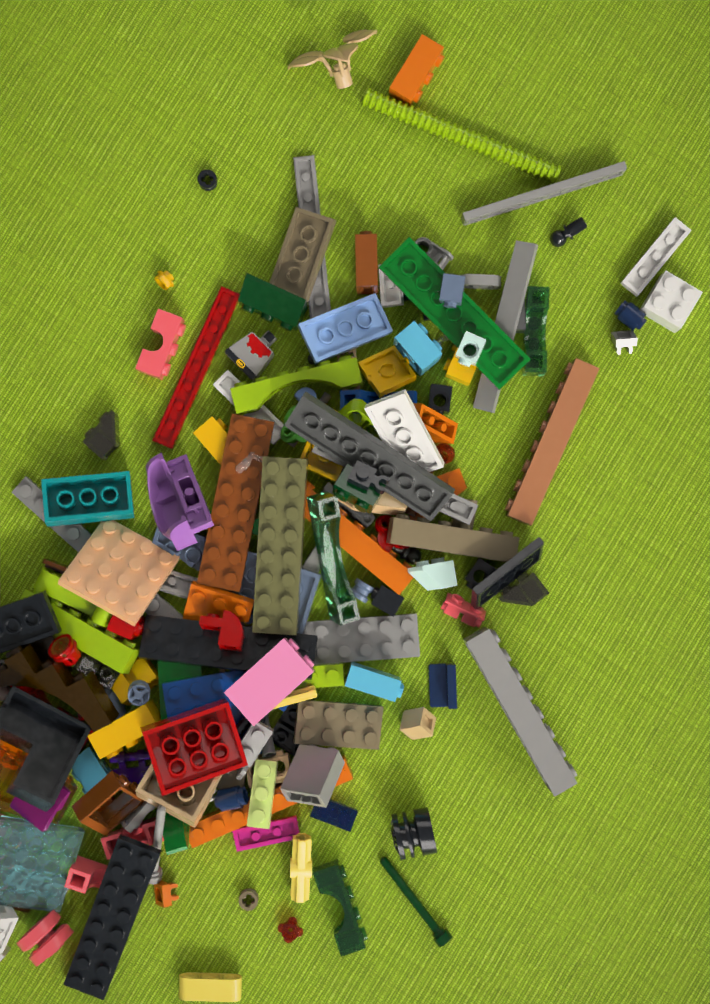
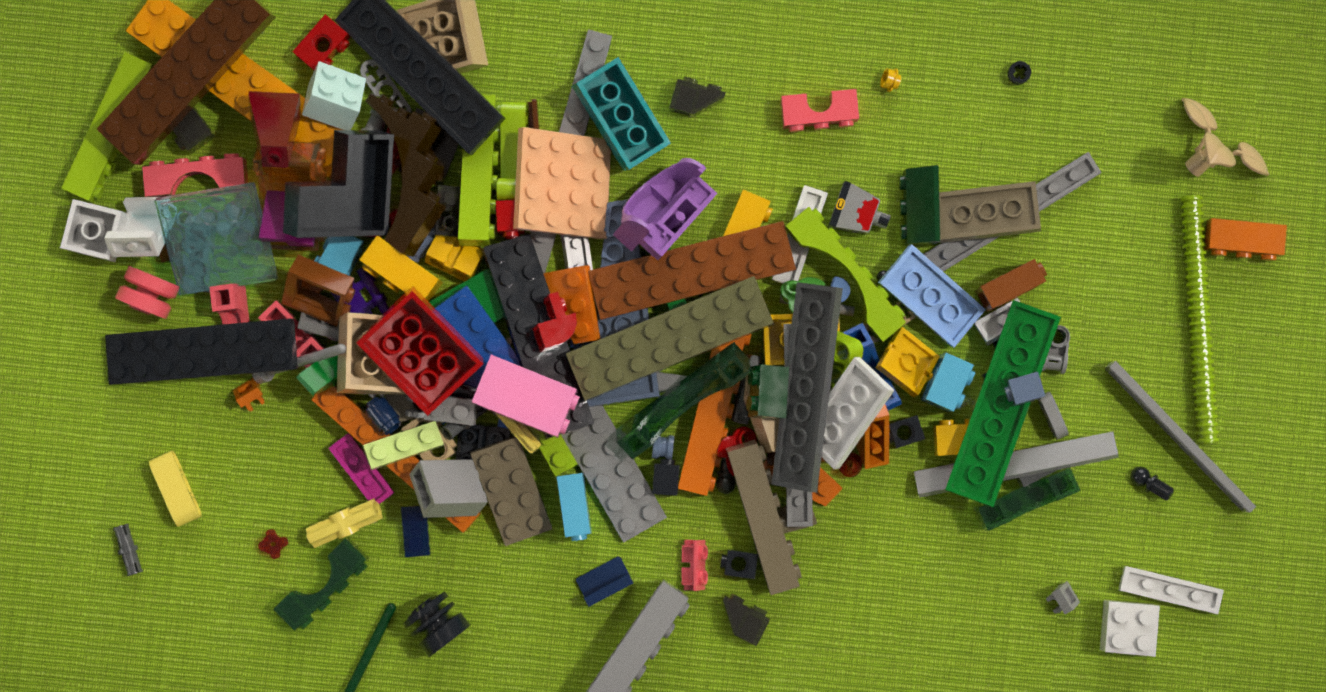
camera: 60 degrees right, 0 degrees up
(63, 649) = (455, 166): red piece -> none
(137, 696) = (443, 270): sand blue wheel -> none
(196, 368) = (814, 158): red tile -> none
(244, 893) = (281, 492): dark tan bush -> none
(247, 461) = (739, 261): clear piece -> none
(364, 477) = (784, 391): black plate -> none
(418, 723) = (552, 574): tan panel -> none
(435, 575) = (716, 516): light aqua slope -> none
(474, 340) = (982, 433): light aqua brick -> none
(507, 573) = (755, 591): black tile -> none
(552, 441) = (918, 573): nougat brick -> none
(631, 315) = (1094, 593): dark blue brick -> none

